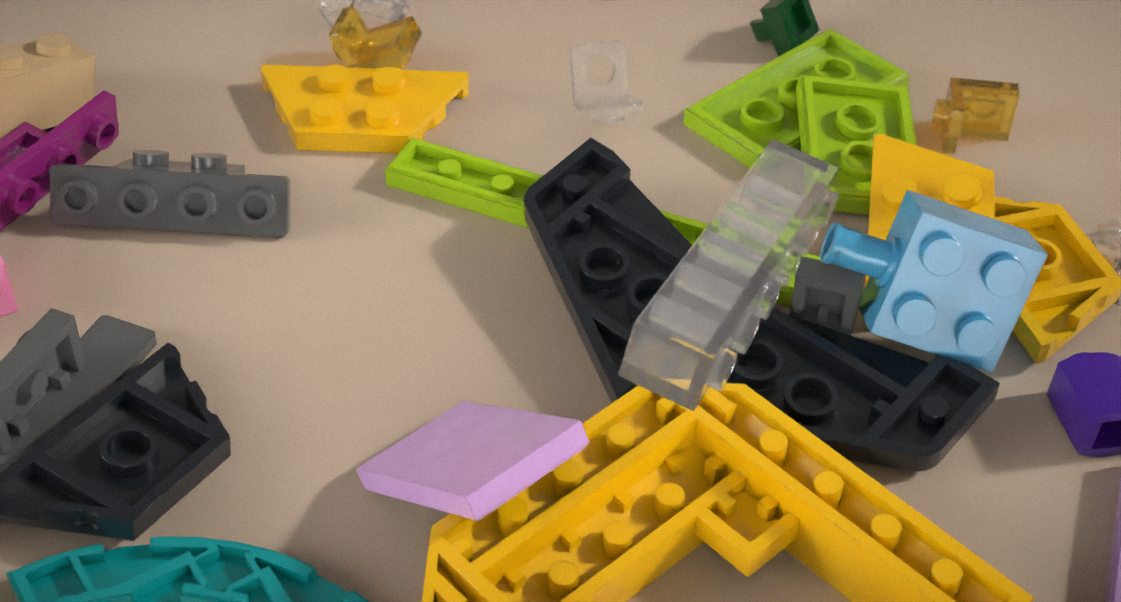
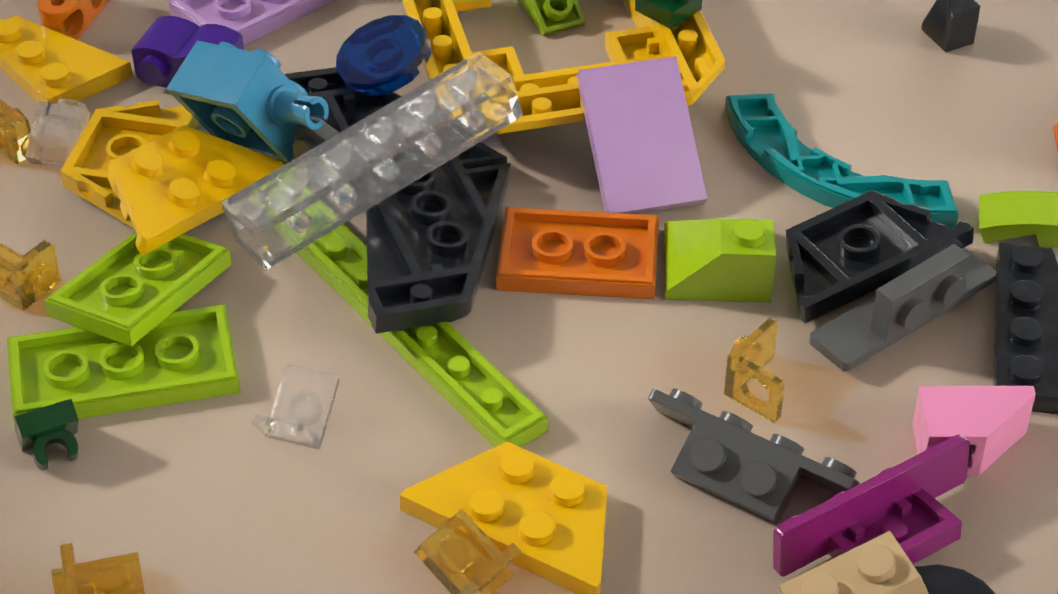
camera: 150 degrees left, 0 degrees up
(209, 275) = (748, 361): none -> clear yellow bracket
(297, 394) = (719, 259): none -> lime slope
(470, 352) = (578, 253): none -> orange tile
(879, 431) = (383, 55): none -> clear blue tile

